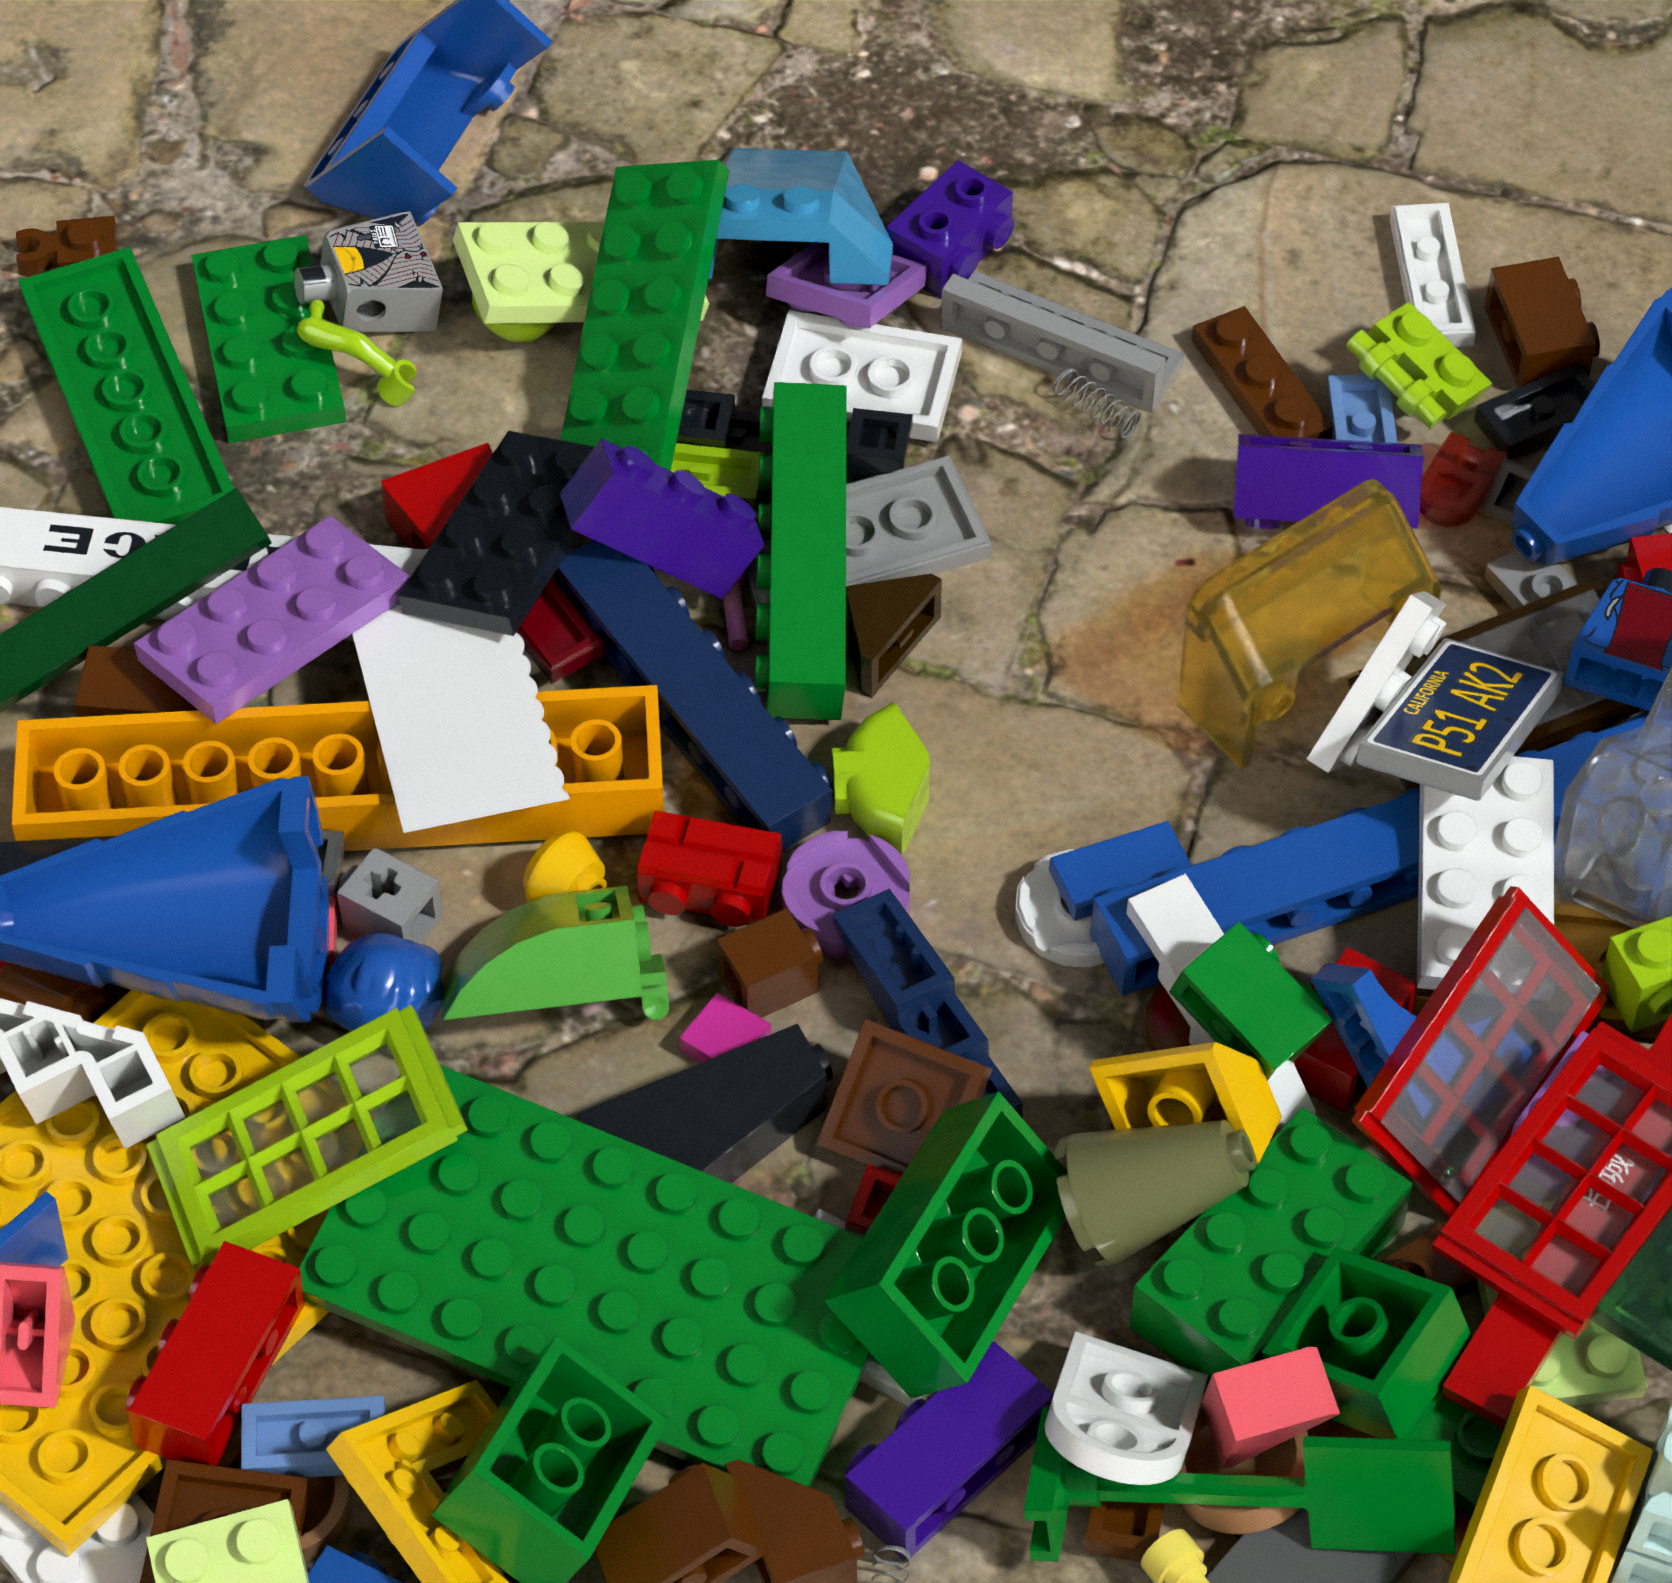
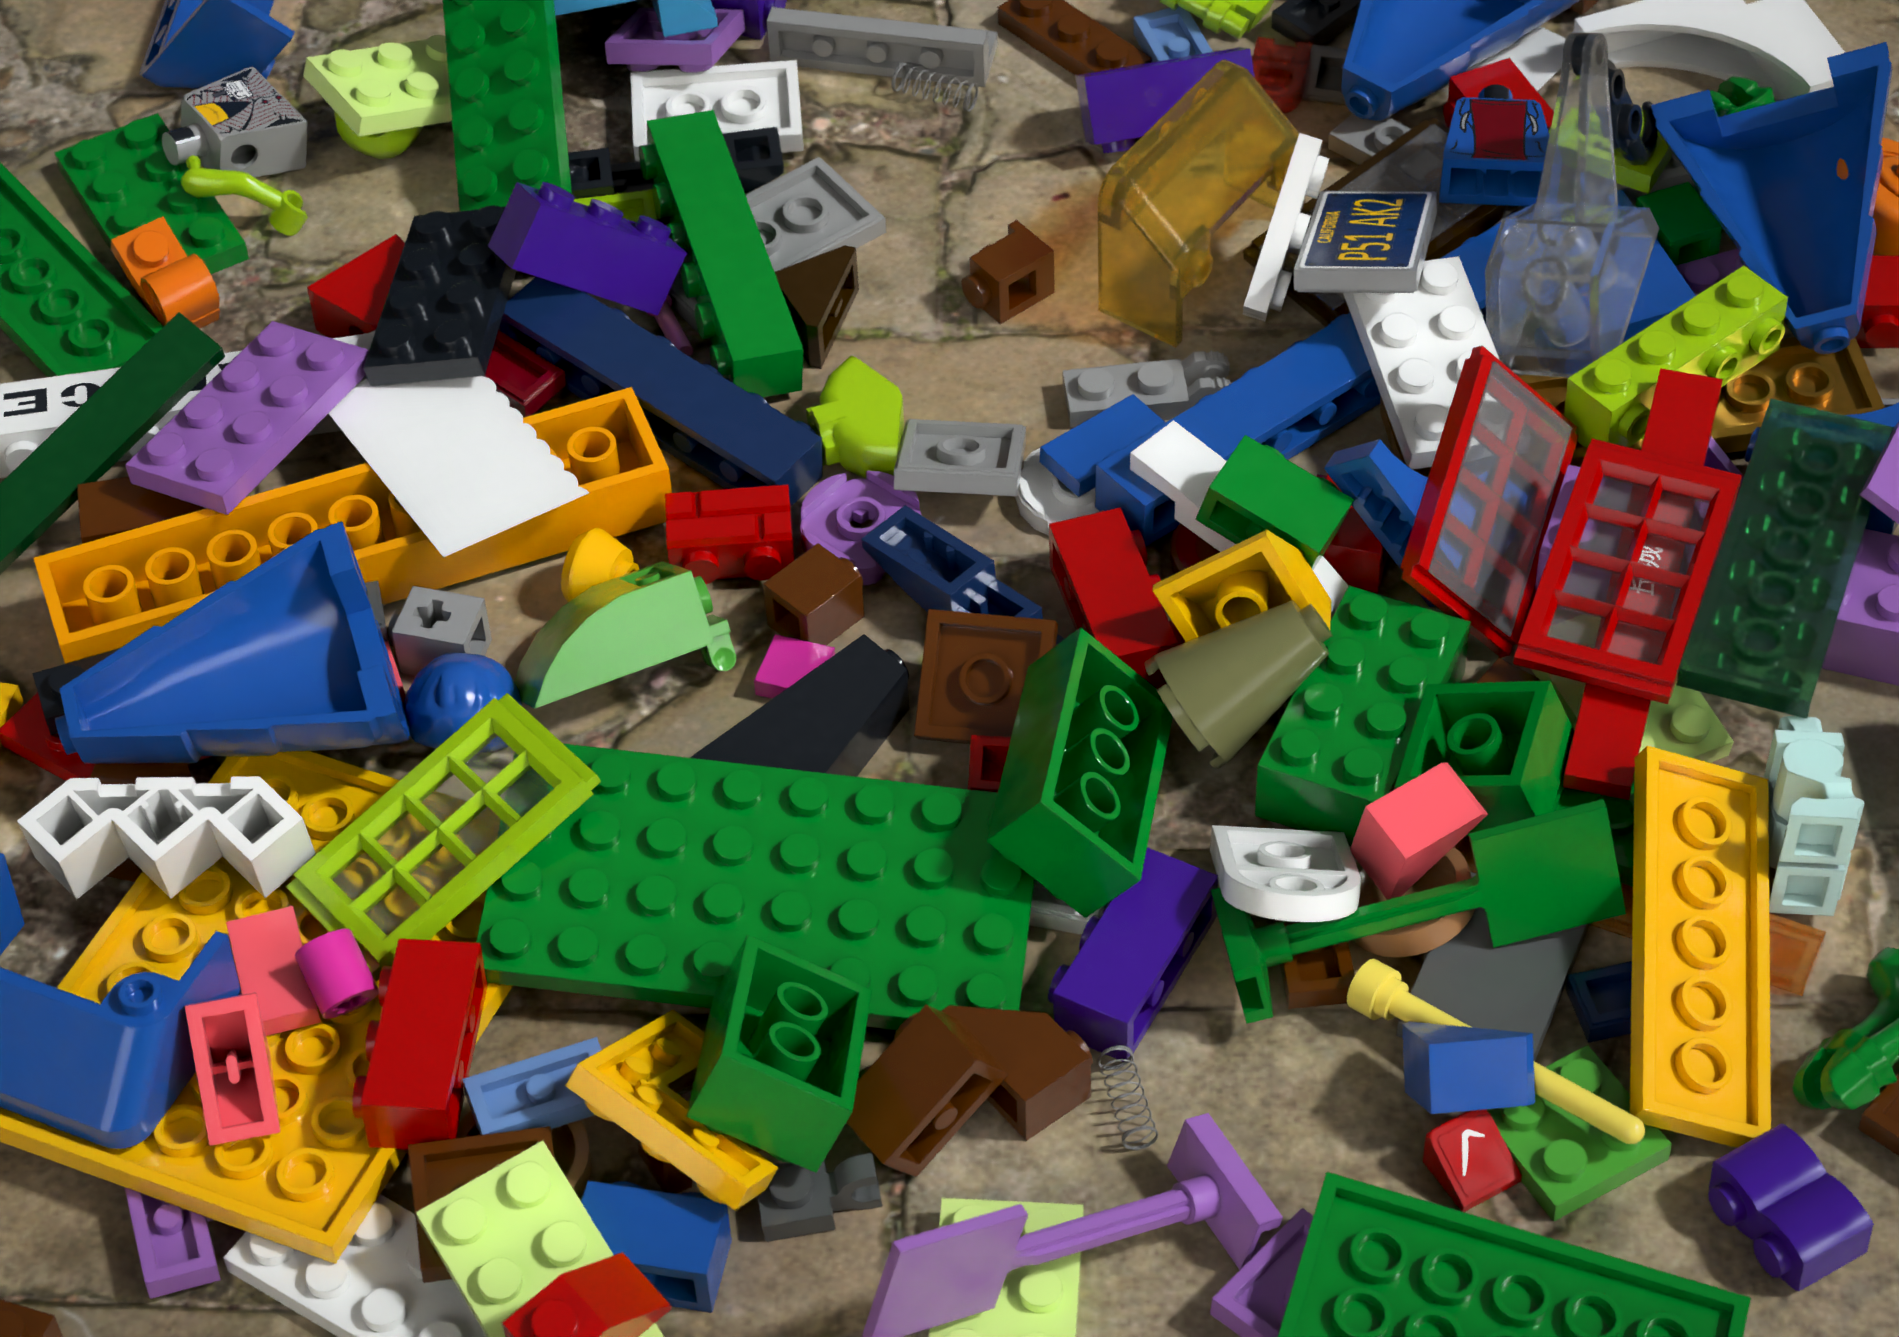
camera: 15 degrees left, 5 degrees down
(104, 1233) = (267, 965): none -> coral tile
(157, 1257) = (336, 973): none -> dark pink piece
(251, 431) = (166, 276): none -> orange plate
(969, 845) = (960, 457): none -> light grey plate
(1062, 1035) = (1109, 588): none -> red brick
(1094, 645) = (1010, 274): none -> reddish brown brick
(1196, 811) = (1162, 385): none -> light grey hinge

